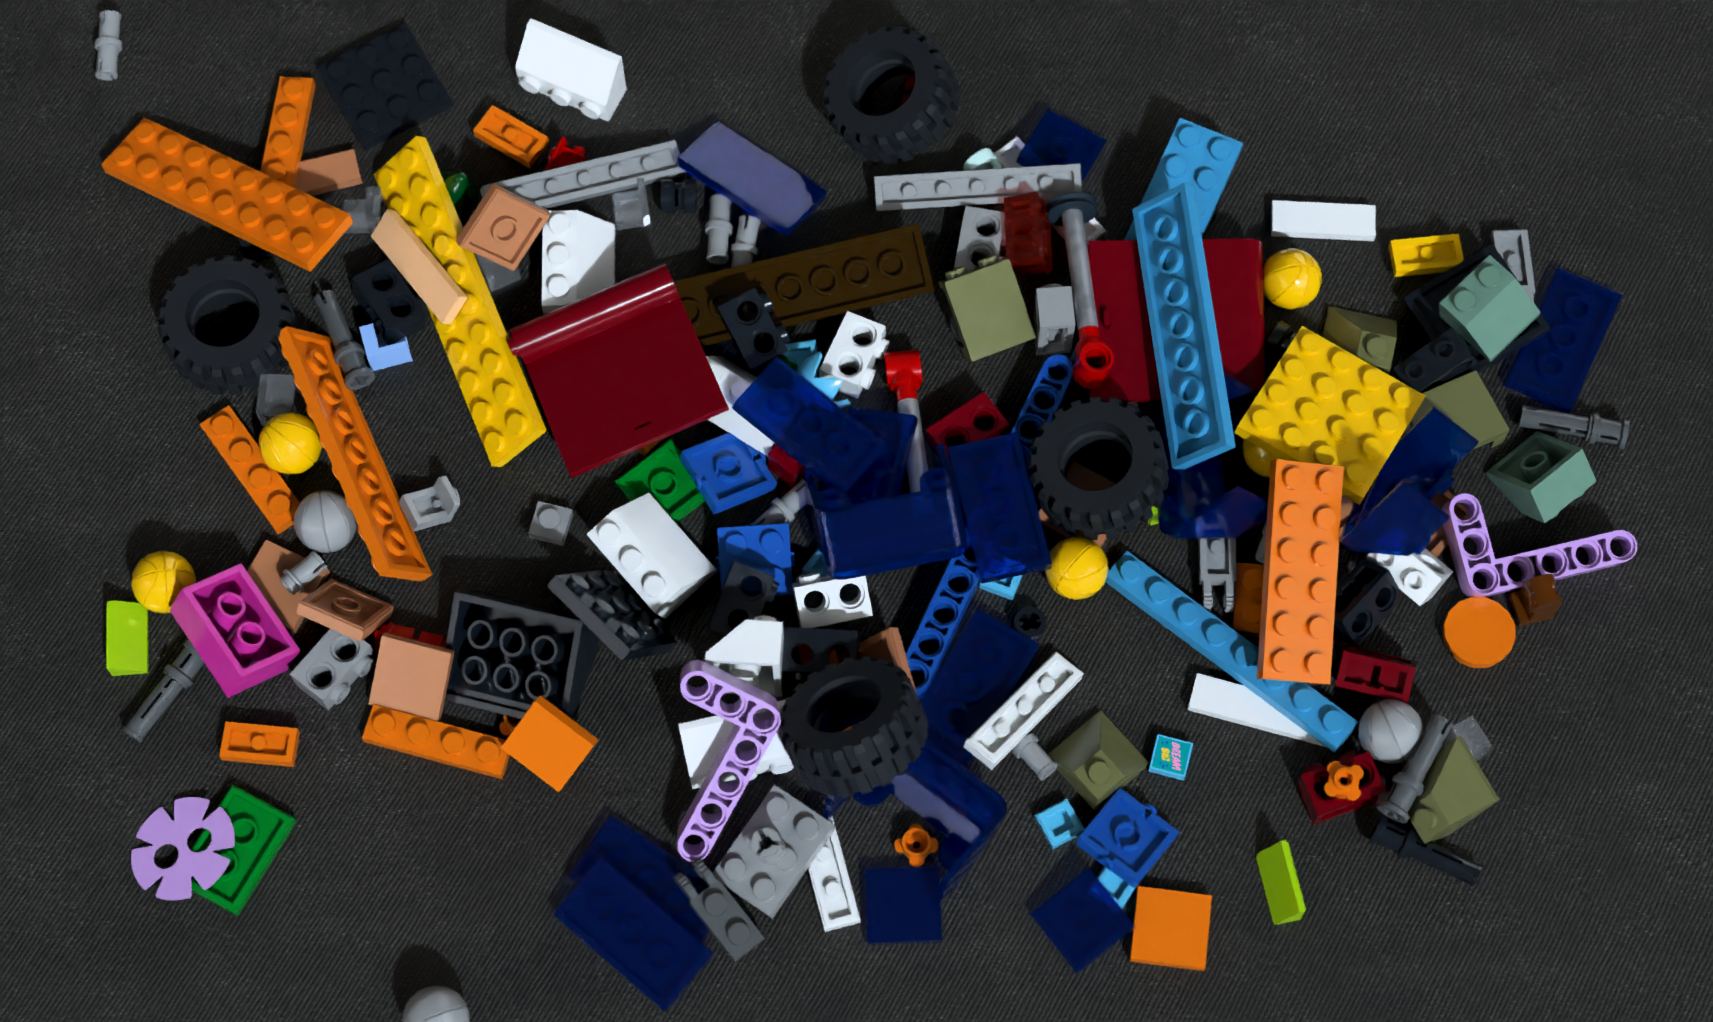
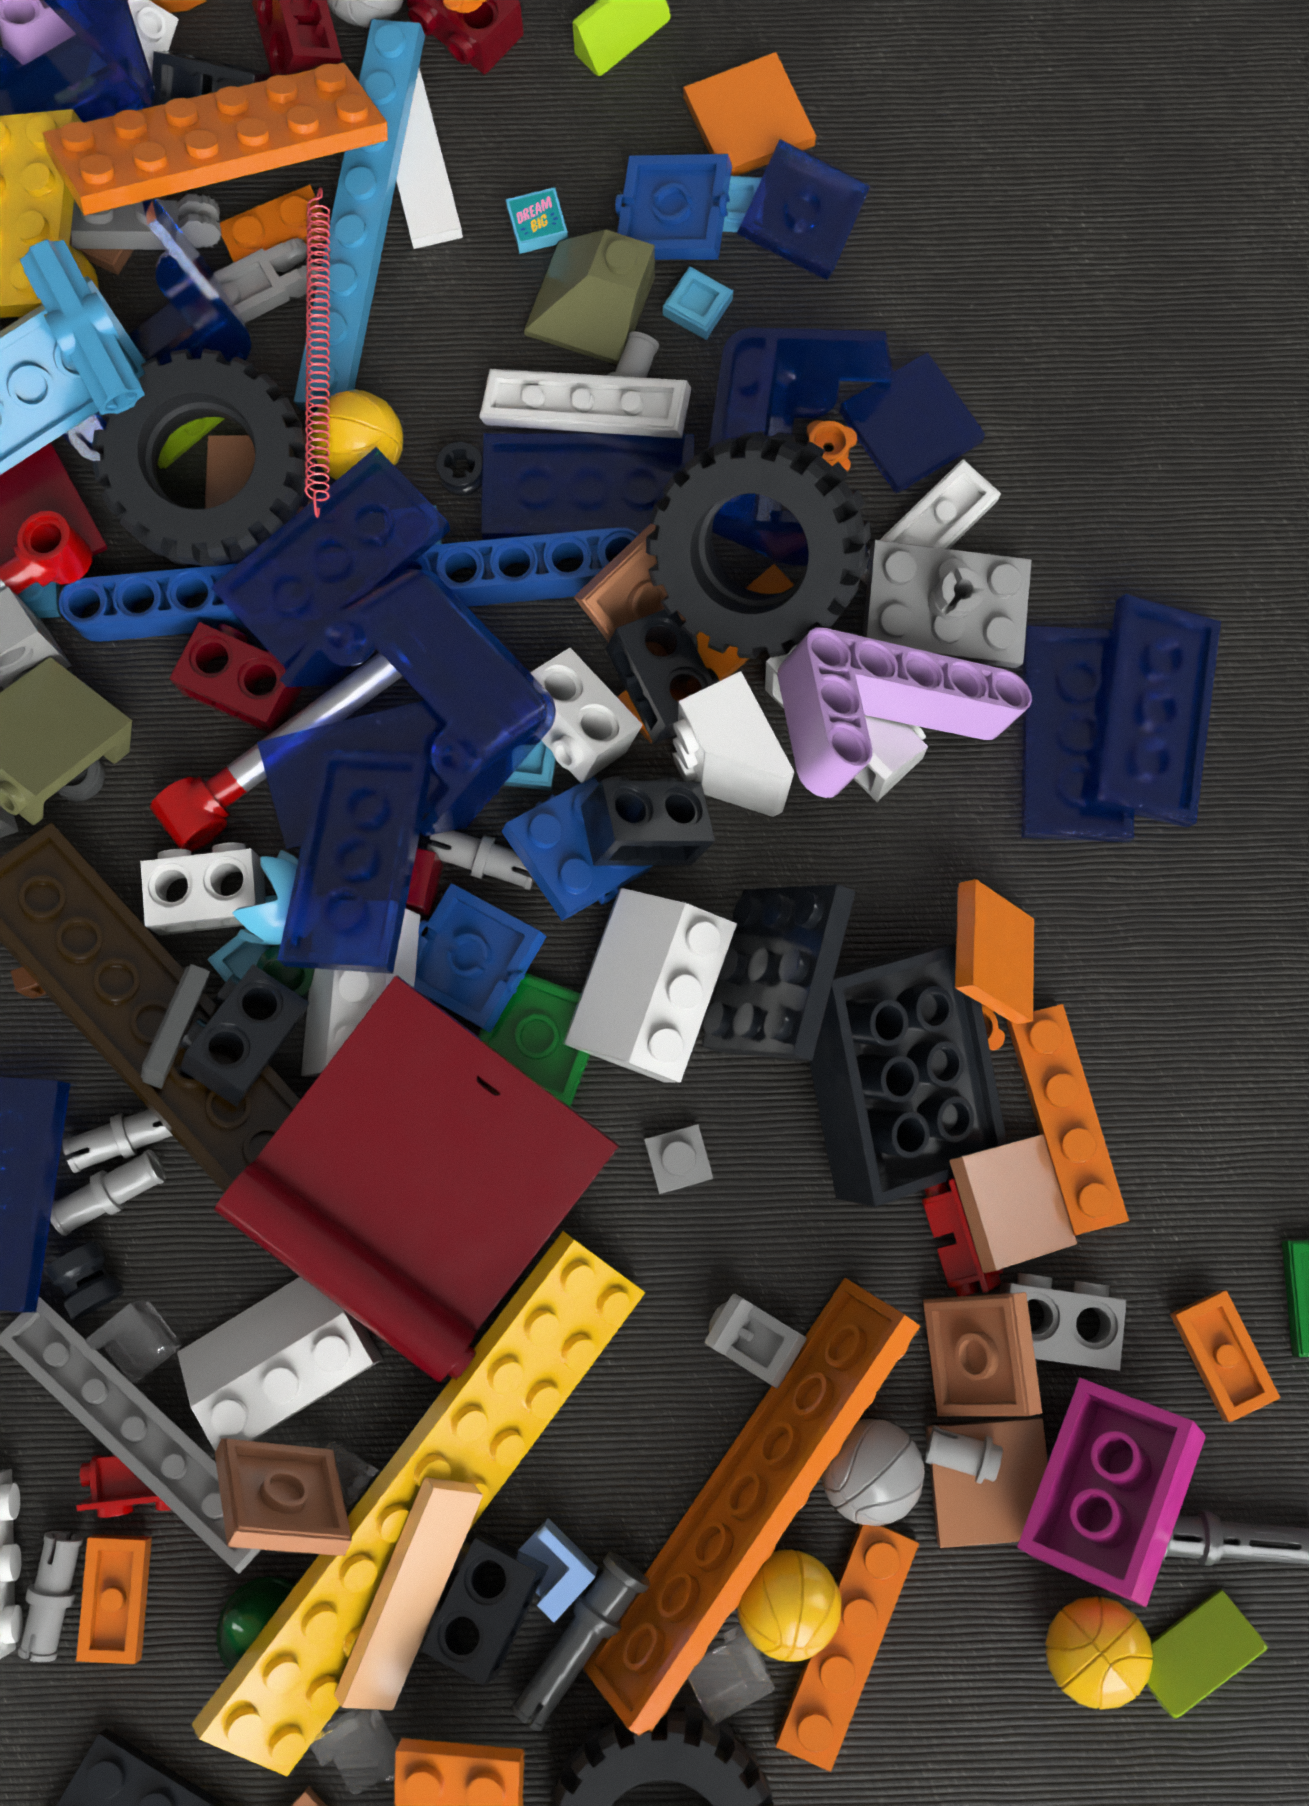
camera: 120 degrees left, 10 degrees up
(532, 108) = (50, 1596): none -> light grey pin
(720, 913) = (1066, 617): dark grey hinge -> none
(777, 294) = (174, 1025): none -> dark grey tile
(1134, 565) = (319, 193): none -> coral piece
(1191, 421) = (82, 326): none -> dark azure piece

